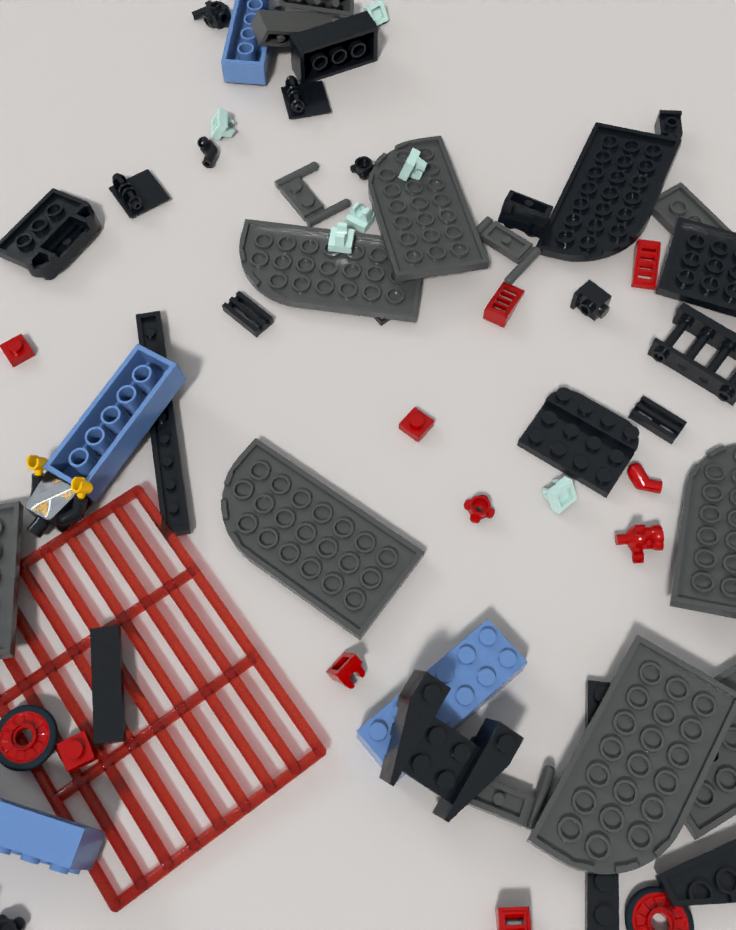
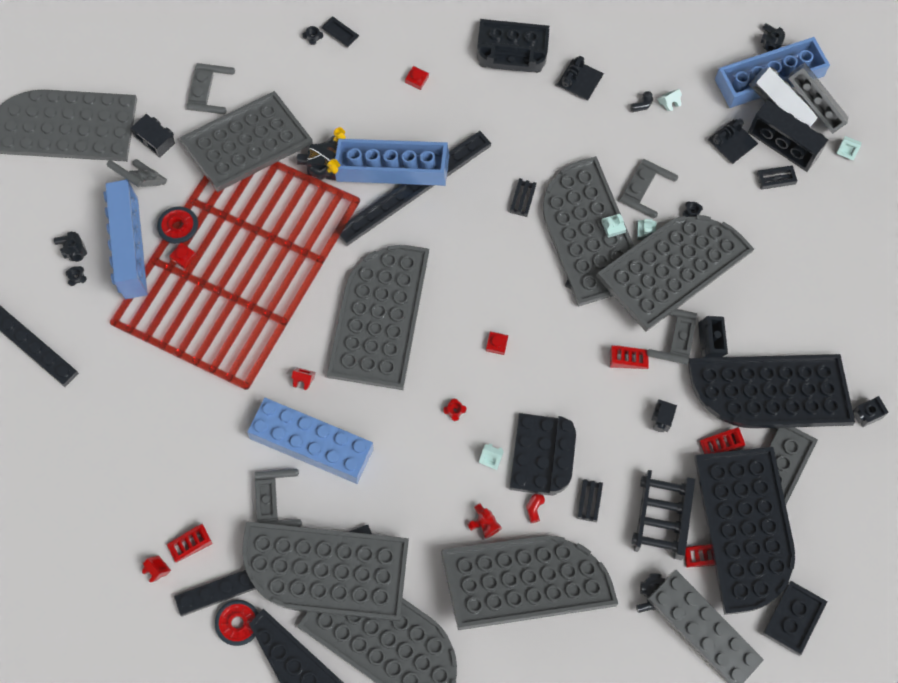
camera: 60 degrees right, 5 degrees up
(107, 685) = (227, 250): black tile -> none
(366, 96) = (791, 178): none -> black tile
(412, 165) = (703, 240): light aqua tile -> none
(440, 755) = (270, 448): black wedge -> none

